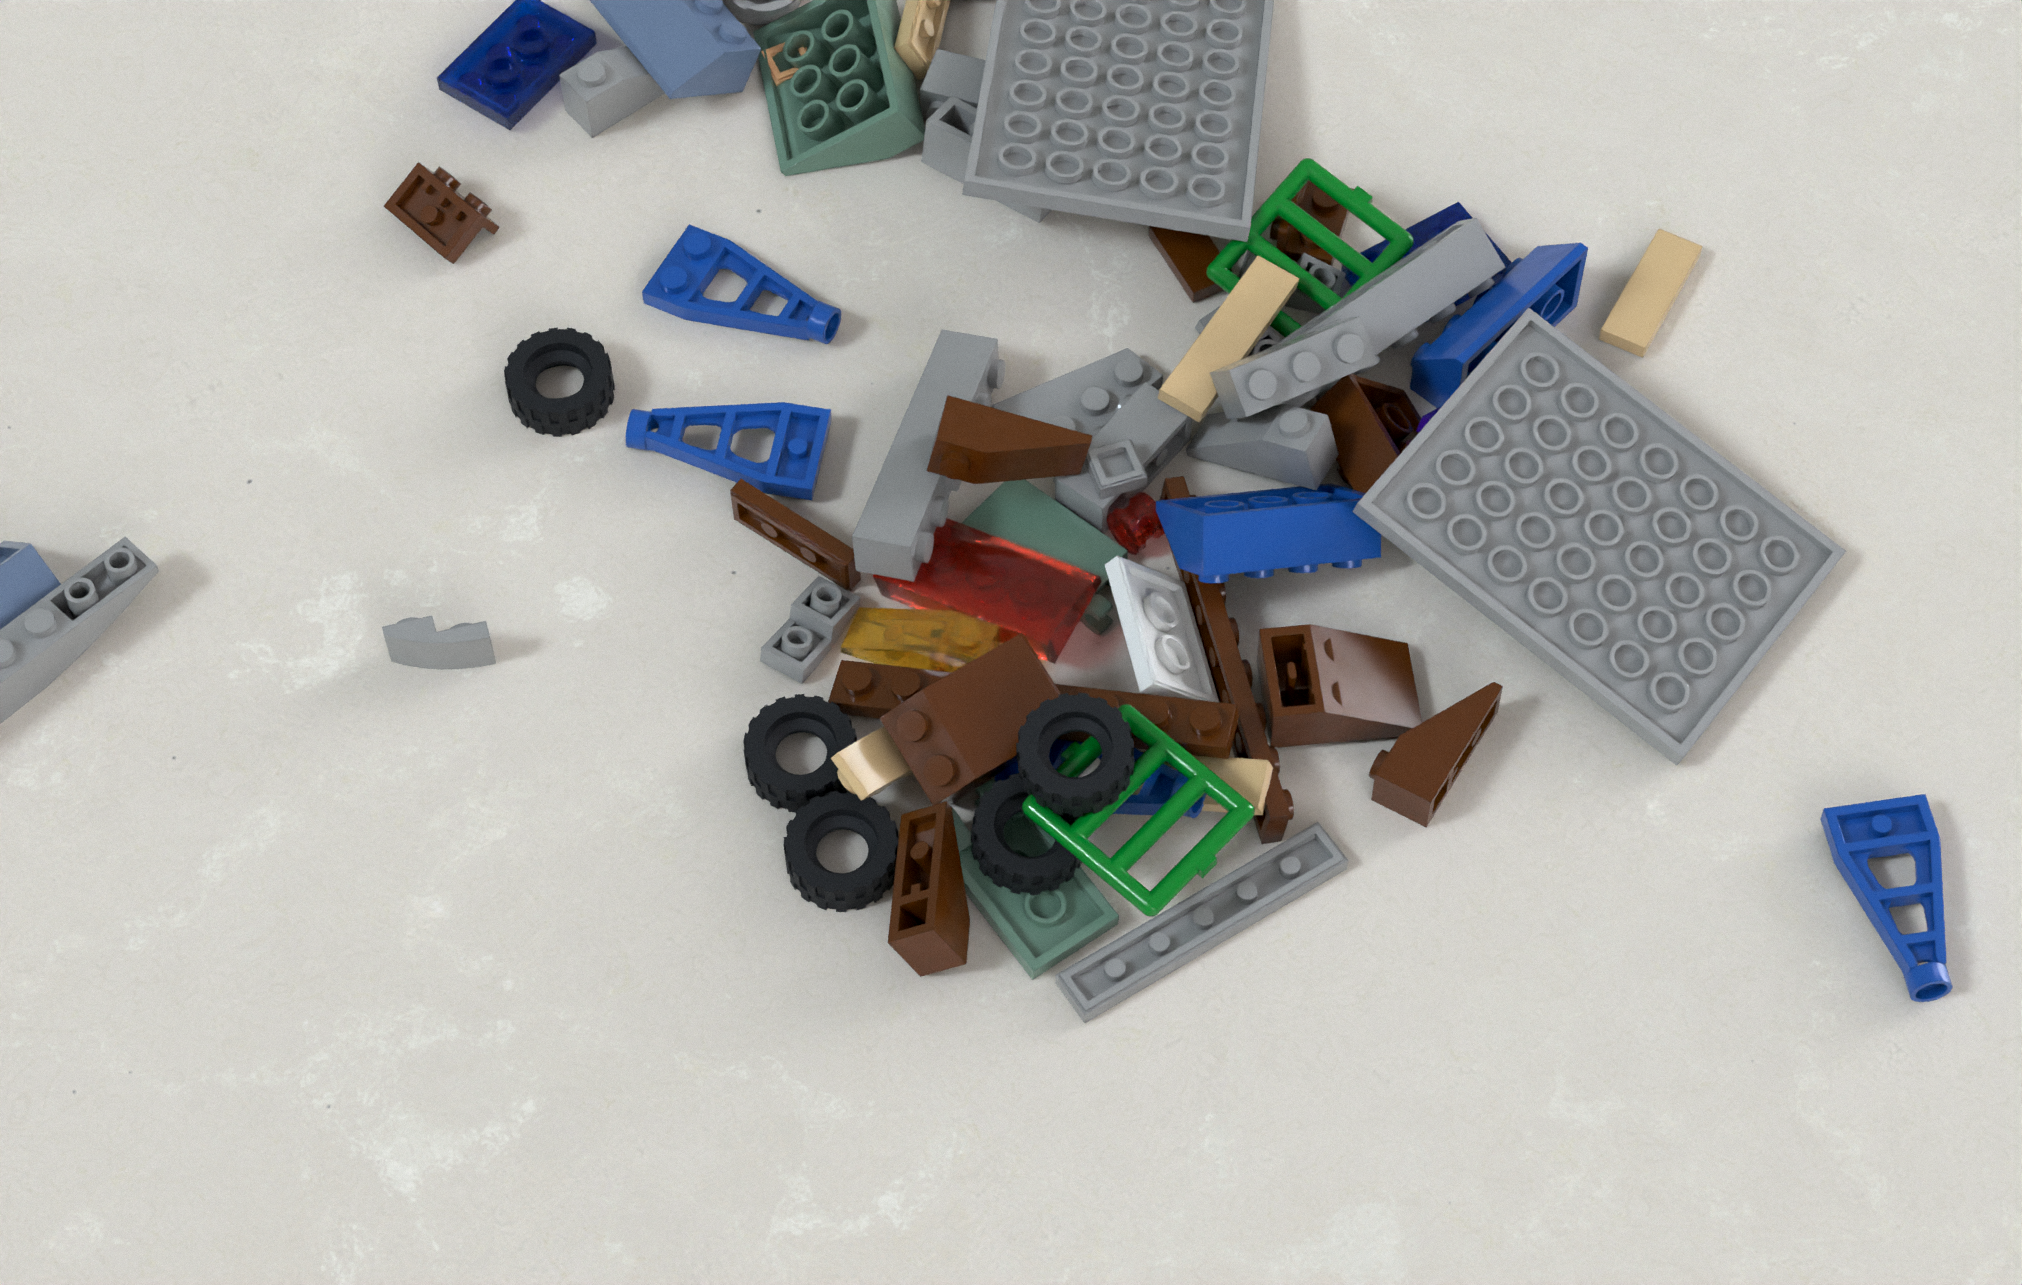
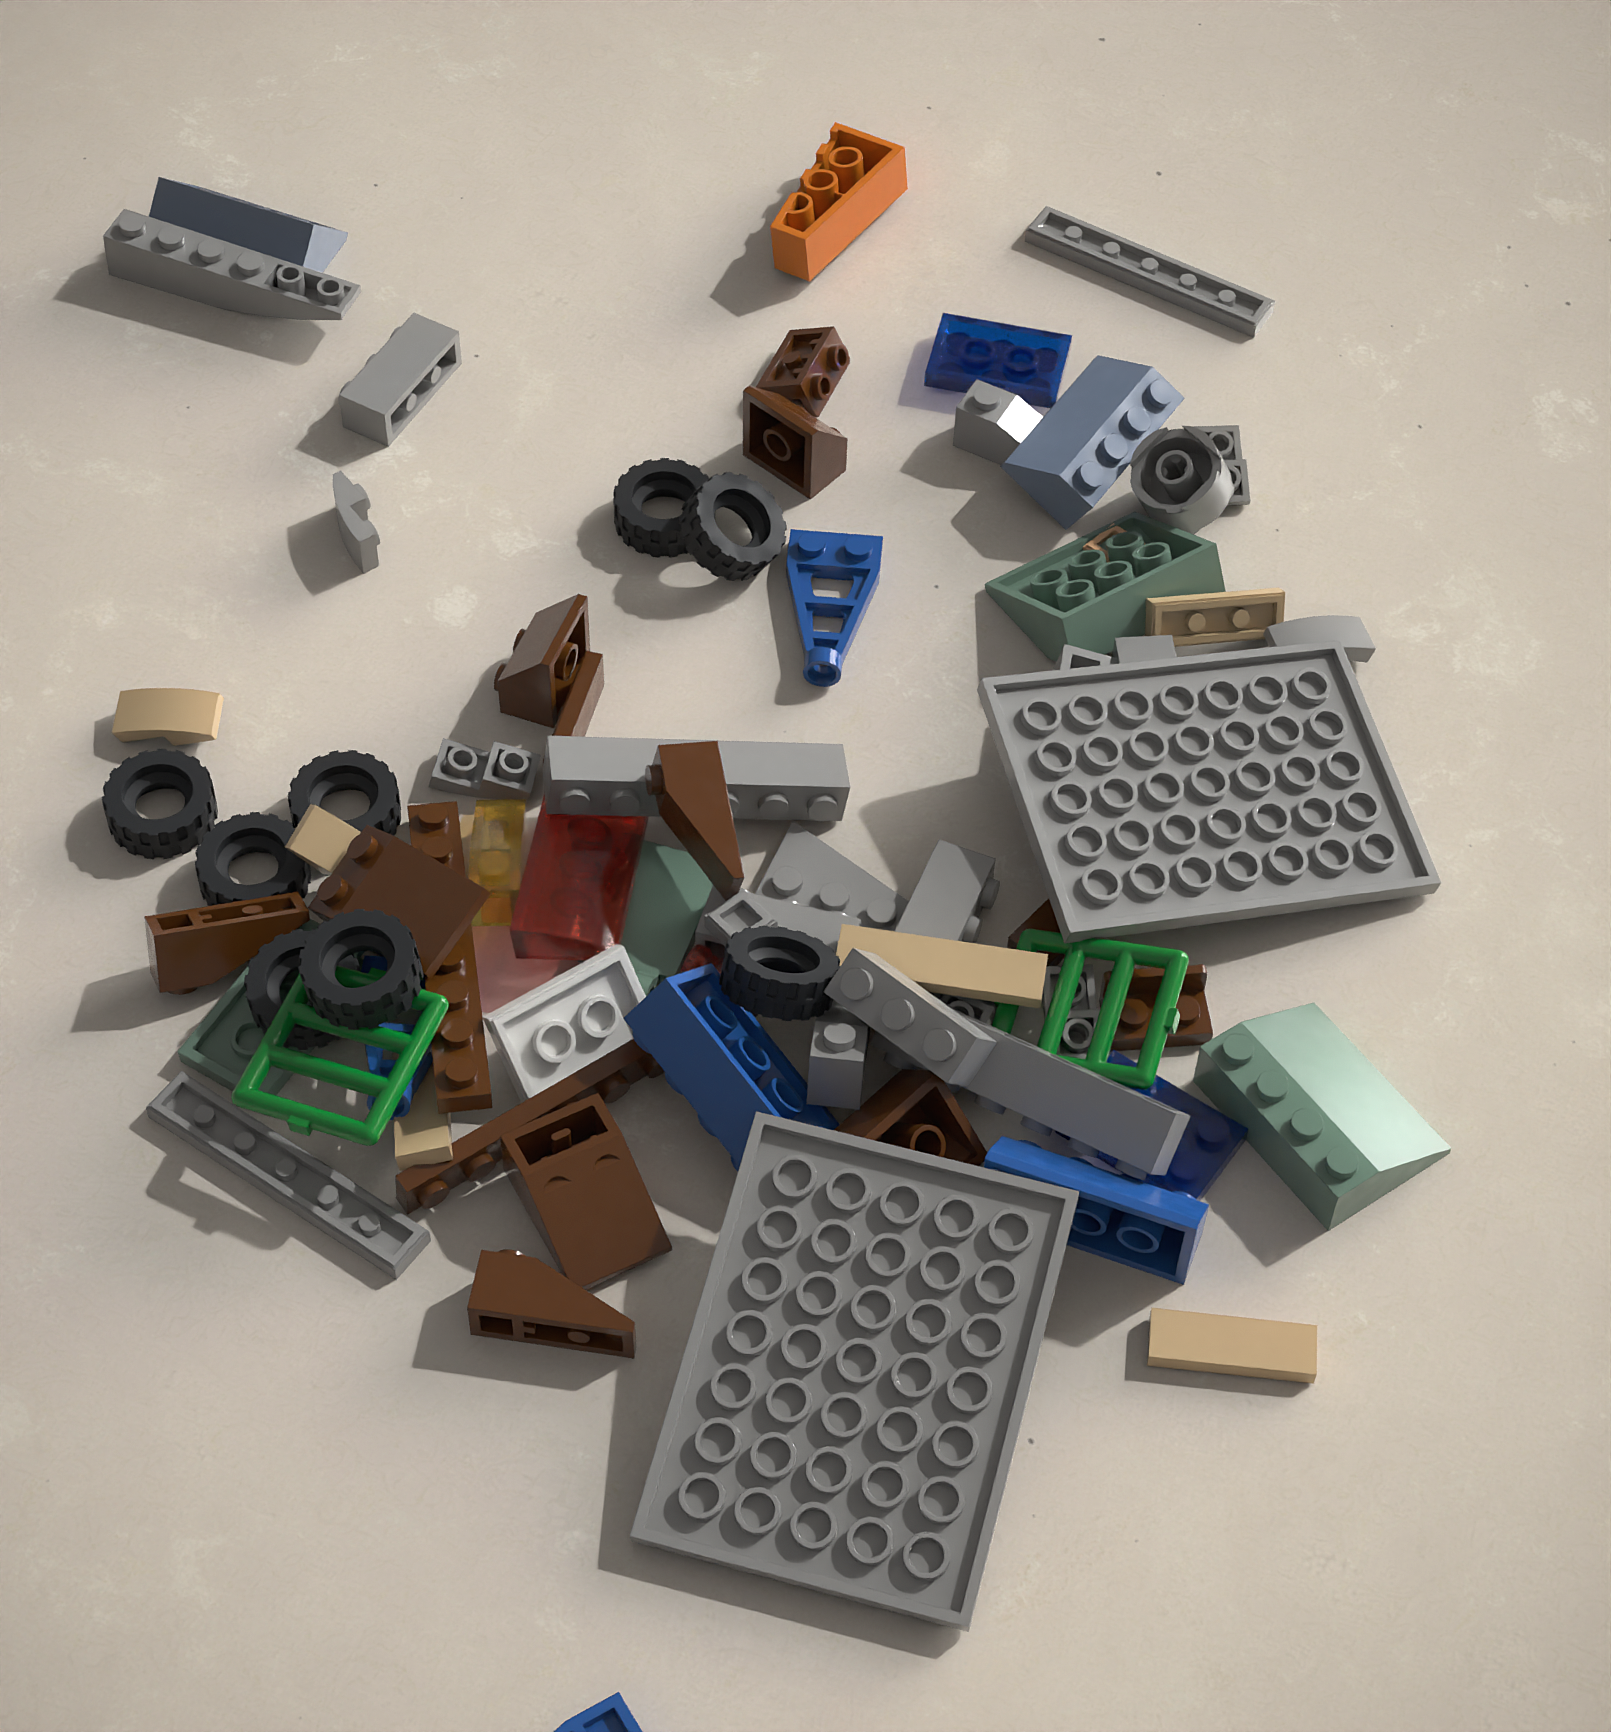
camera: 65 degrees right, 5 degrees down
(231, 101) = (837, 200): none -> orange wedge
(262, 548) = (400, 379): none -> light grey brick
(543, 250) = (791, 442): none -> reddish brown slope
(606, 330) = (712, 547): none -> black tyre
(613, 874) = (175, 713): none -> tan slope
(717, 872) = (152, 772): none -> black tyre
(719, 528) = (544, 662): none -> reddish brown slope
(794, 456) = (666, 693): blue plate -> none
(1136, 315) = (951, 895): none -> light grey brick
(1207, 470) = (778, 973): none -> black tyre
(1462, 149) = (1316, 1110): none -> sand green slope

